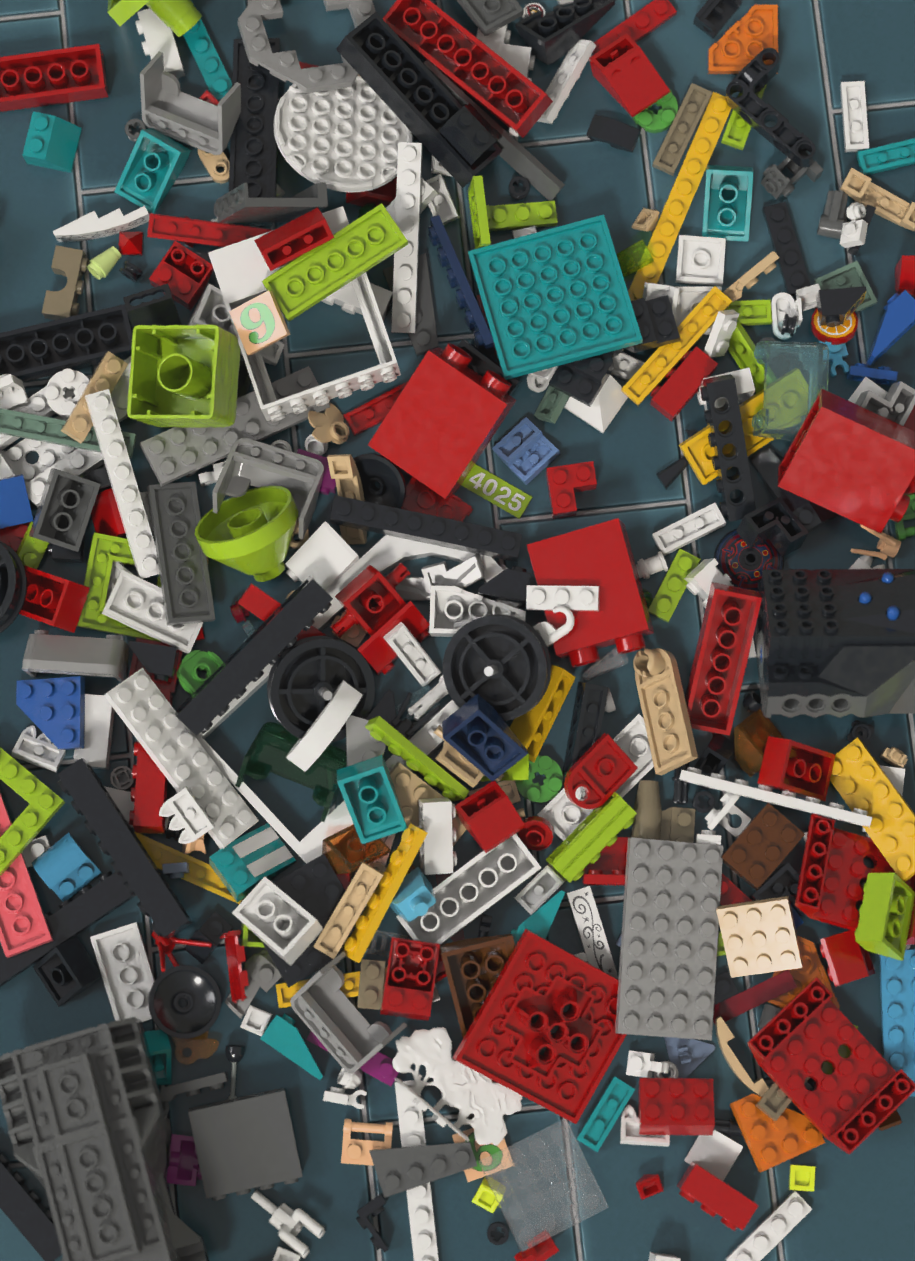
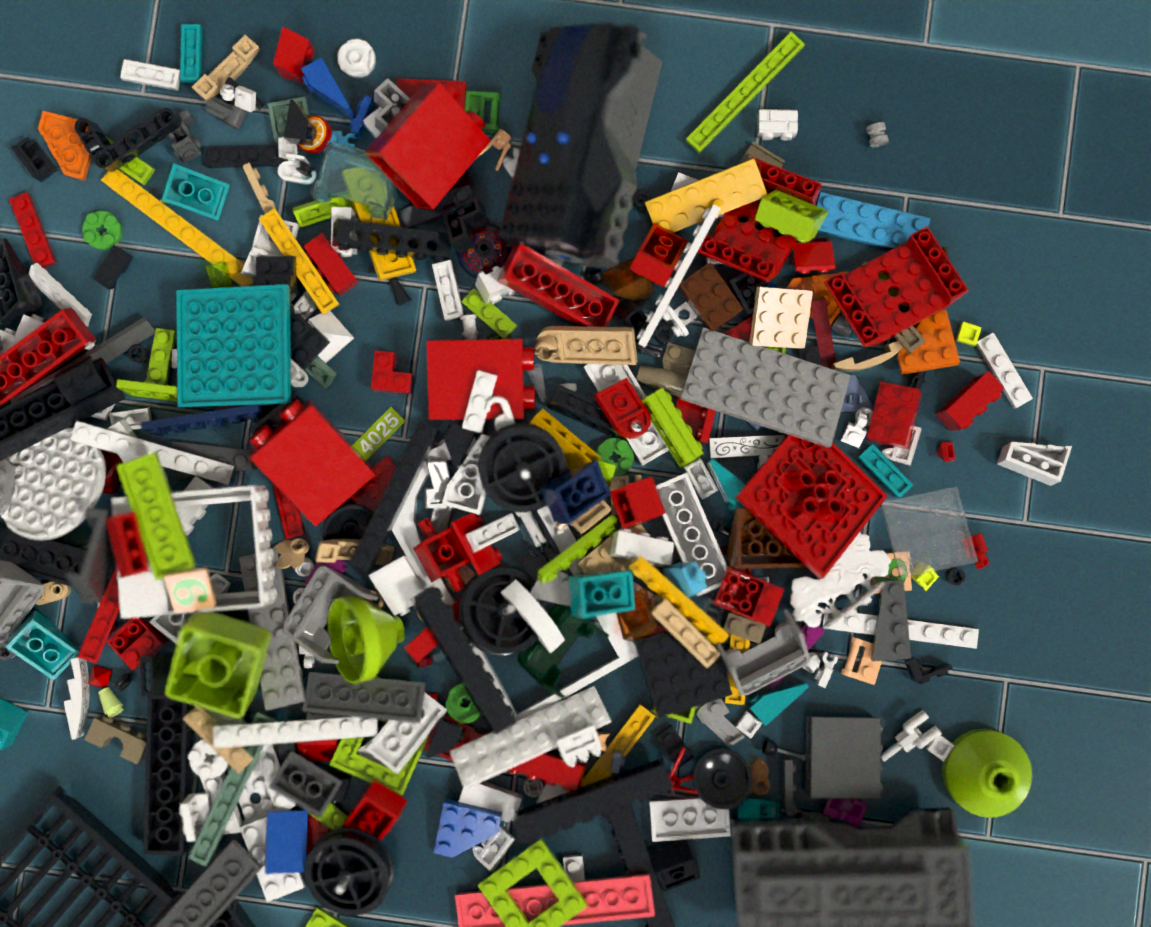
camera: 75 degrees left, 5 degrees up
(65, 867) = (592, 848): dark azure brick -> none
(76, 655) = (426, 802): light grey windscreen -> none
(235, 956) = (699, 730): red piece -> none
(249, 860) = (624, 699): teal slope -> none
(278, 920) = (680, 692): white slope -> none
(526, 451) = (352, 402): medium blue slope -> none
(537, 833) = (658, 468): red plate -> none
(628, 75) = (67, 242): red slope -> none
(646, 220) = (191, 259): tan slope -> none
(682, 129) = (124, 212): dark tan plate -> none
(700, 260) = (235, 225): white plate -> none
(708, 837) = (693, 338): white plate -> none
(714, 1154) = (934, 395): white sticker -> none
(721, 333) = (297, 223): white plate -> none
(753, 312) = (287, 199): lime plate -> none
(894, 757) = (666, 179): tan plate -> none

